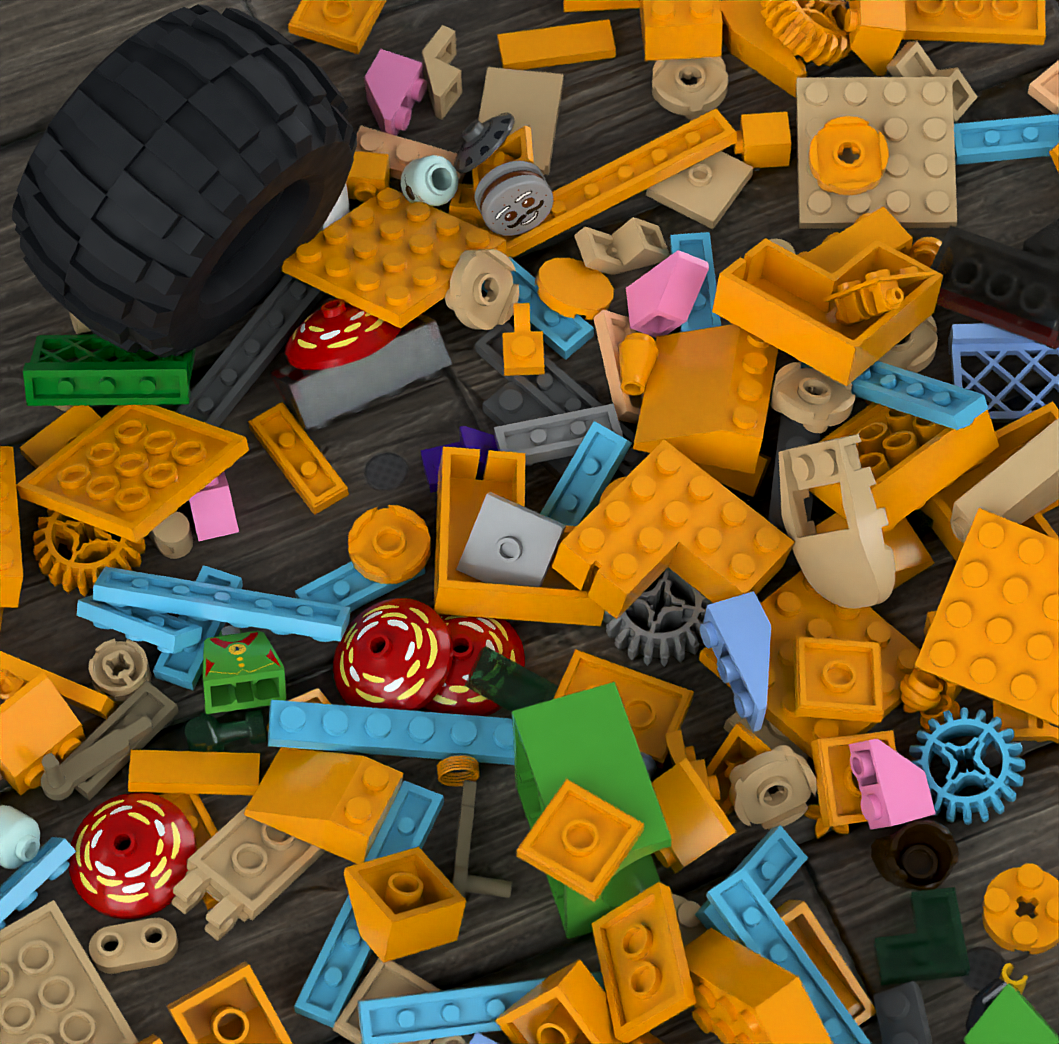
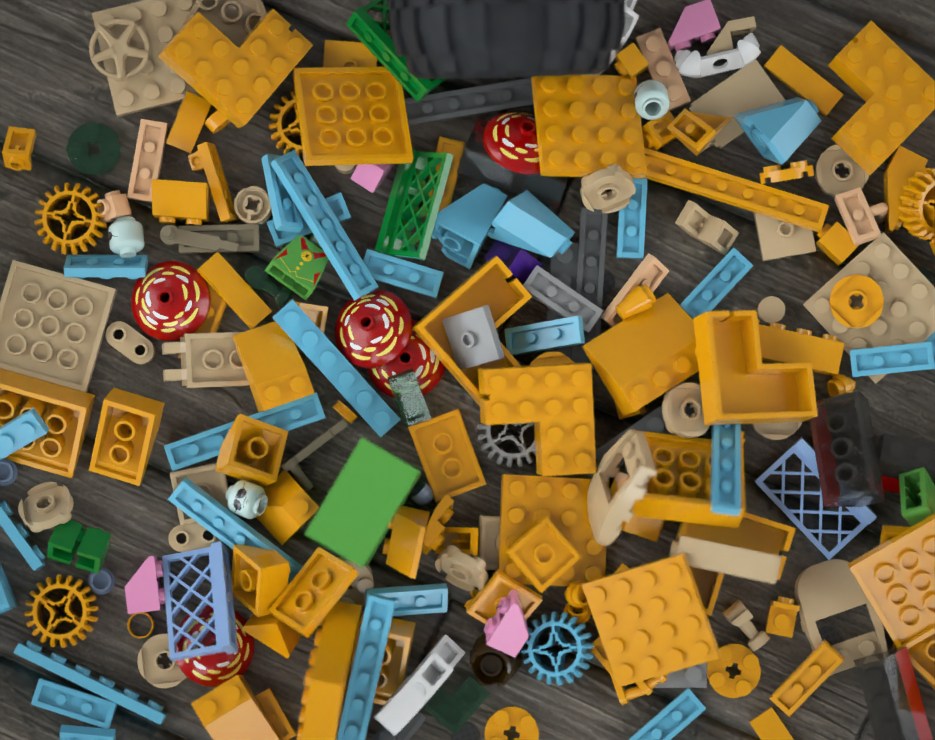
camera: 45 degrees right, 25 degrees up
(282, 508) = (402, 208): none -> green fence
(375, 462) = (465, 223): none -> medium azure slope
(389, 544) = (431, 276): light orange tile -> none
(437, 118) = (695, 66): none -> white piece
(445, 397) = (531, 226): none -> medium azure slope
(454, 959) = (246, 499): none -> light aqua head
(482, 141) = (697, 107): dark grey dish -> none
(504, 933) = (287, 508): none -> light orange slope
(513, 198) = (673, 157): light grey head -> none
(522, 348) = (597, 236): light orange plate -> none
(573, 288) = (656, 228): light orange tile -> none
(580, 840) = (323, 528): light orange tile -> none
(584, 96) = (779, 127): none -> medium azure slope
(637, 126) = (794, 172): none -> light orange plate
(665, 294) = (690, 279): bright pink slope -> none
(741, 642) = (518, 495): light blue slope -> none
(756, 91) = (859, 217): none -> light nougat plate
(875, 949) = (420, 685): none -> white slope
(876, 296) = (769, 395): light orange hinge -> none
(945, 172) = (892, 359): none -> medium azure plate

